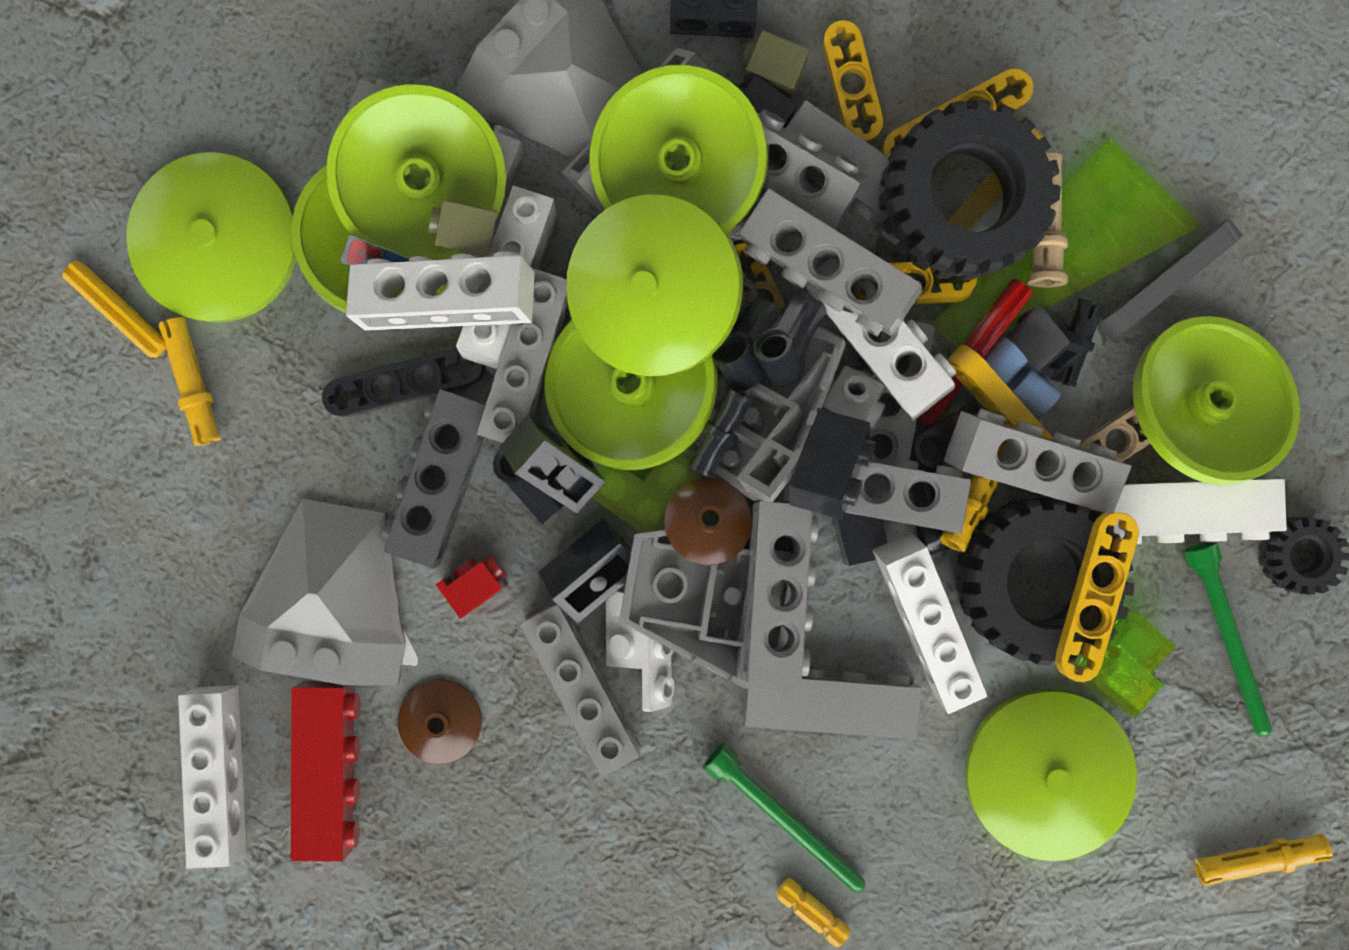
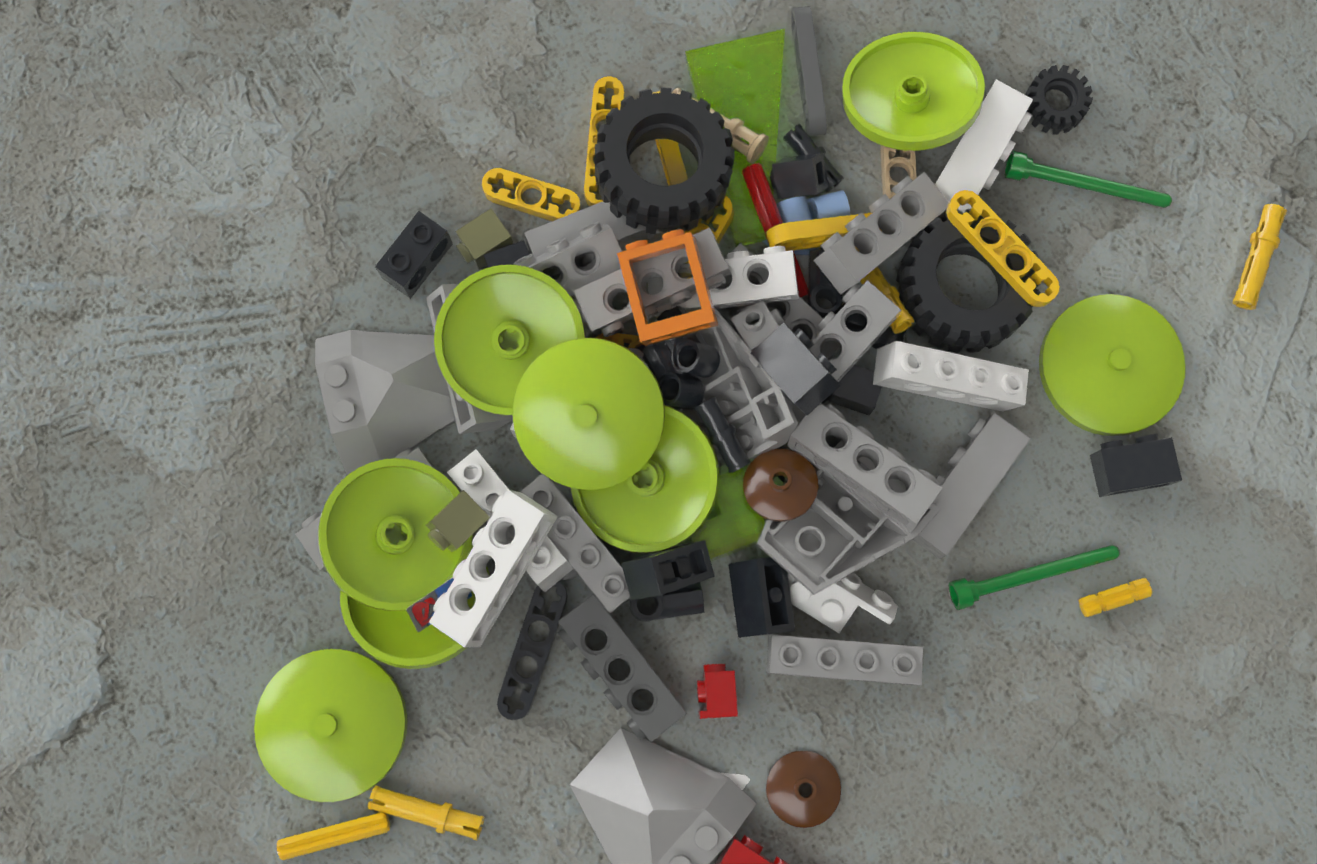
camera: 60 degrees left, 10 degrees down
(849, 229) = (680, 324): none -> orange window
(957, 859) = (1135, 466): none -> black brick
(1128, 665) = (1073, 265): clear neon green brick -> none

